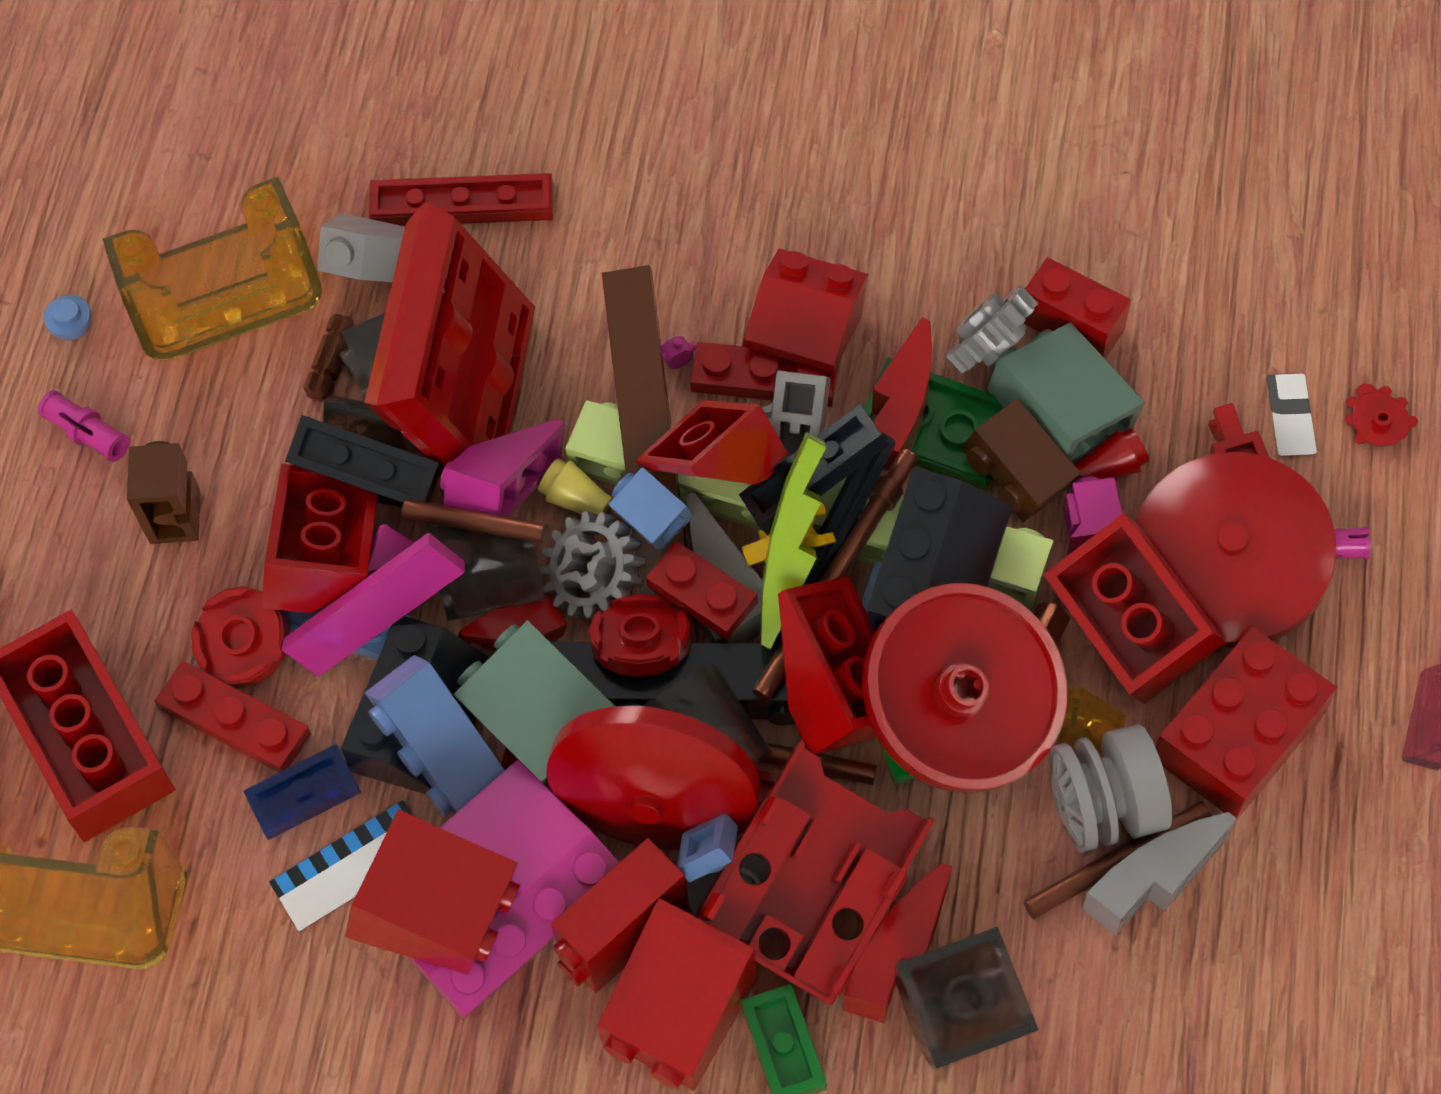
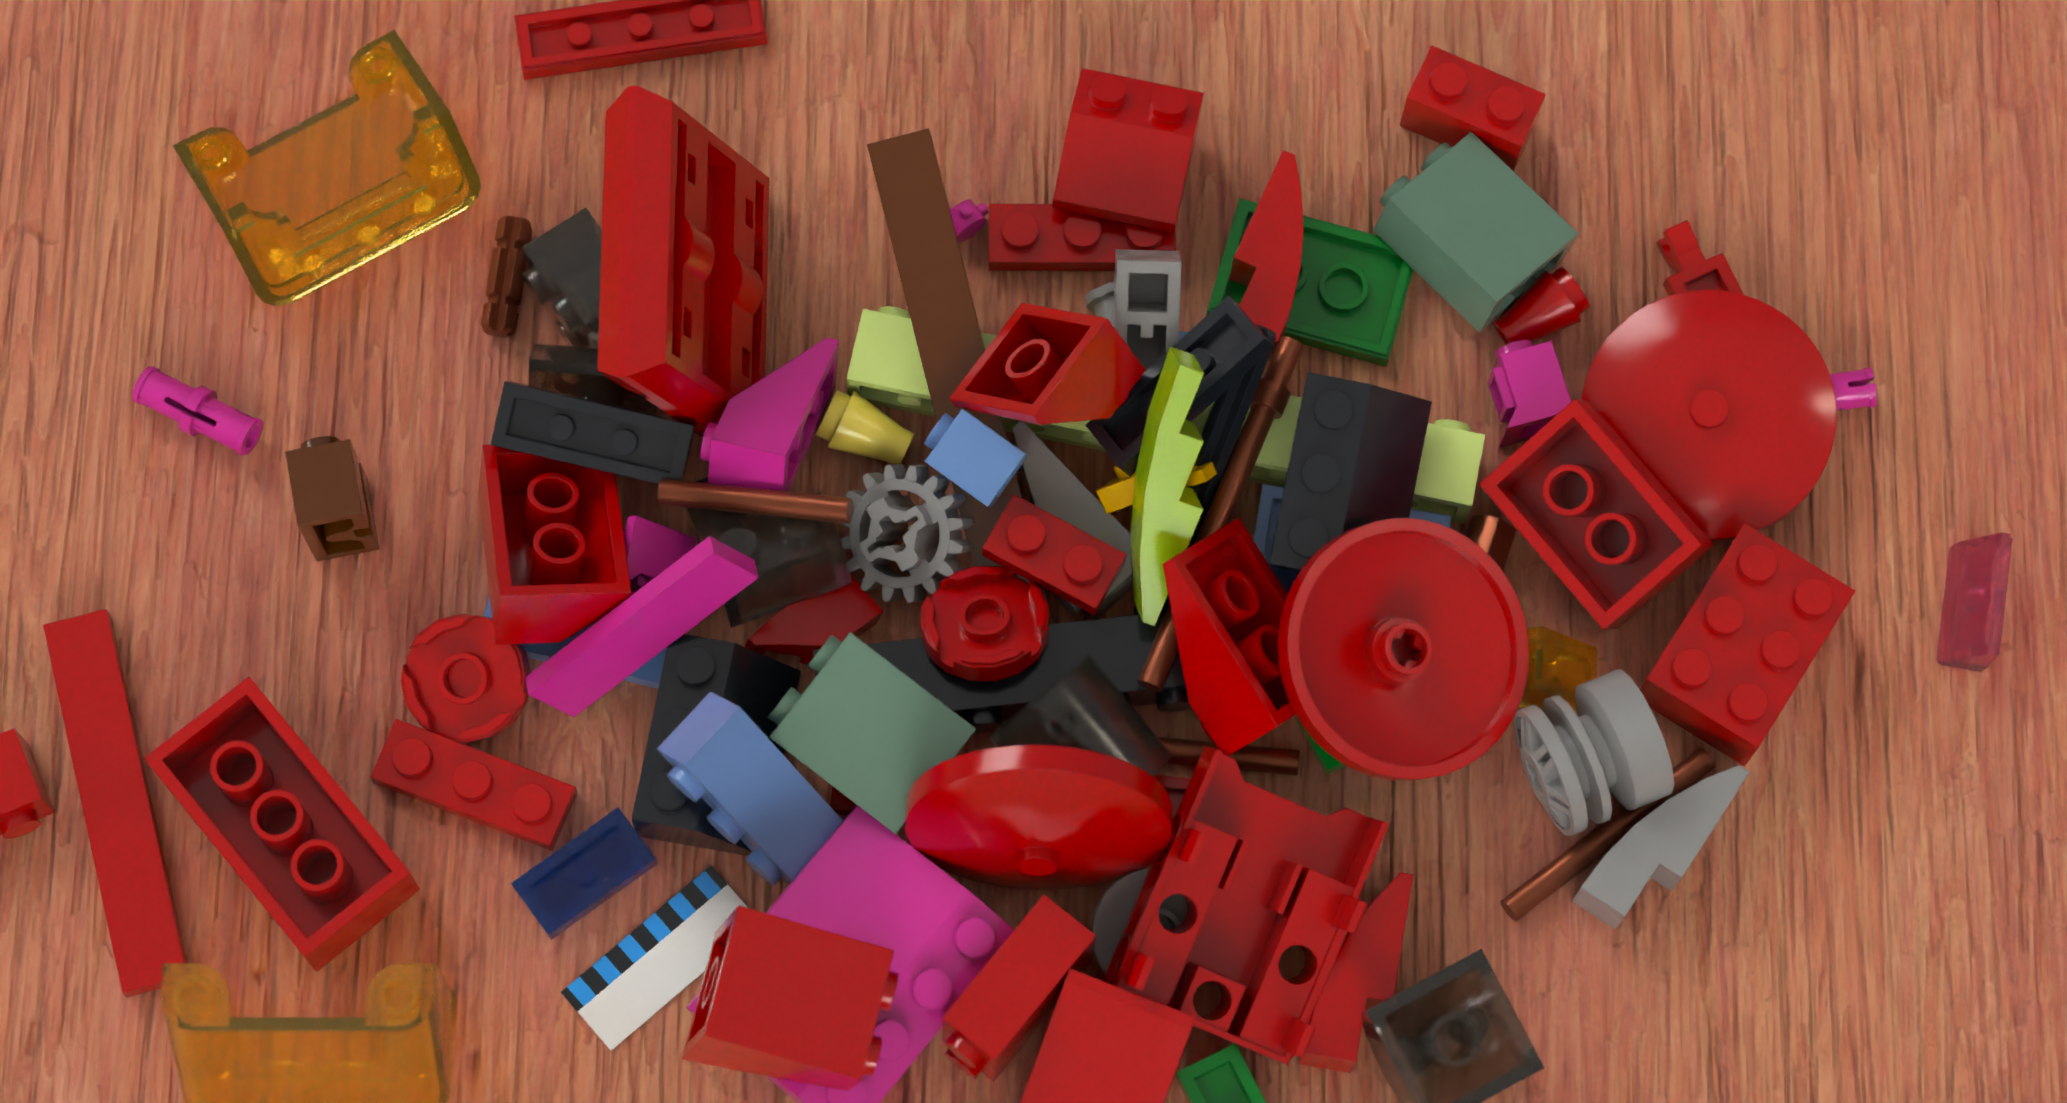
camera: 15 degrees left, 10 degrees up
(68, 317) = (142, 256): medium blue plate -> none
(359, 248) = (540, 121): light grey slope -> none
(707, 847) = (1117, 895): medium blue plate -> none
(991, 329) = (1372, 153): light grey gear -> none
(1020, 460) = (1429, 328): reddish brown brick -> none
(1291, 414) = (1759, 219): white sticker -> none
(1378, 416) = (1869, 212): red piece -> none

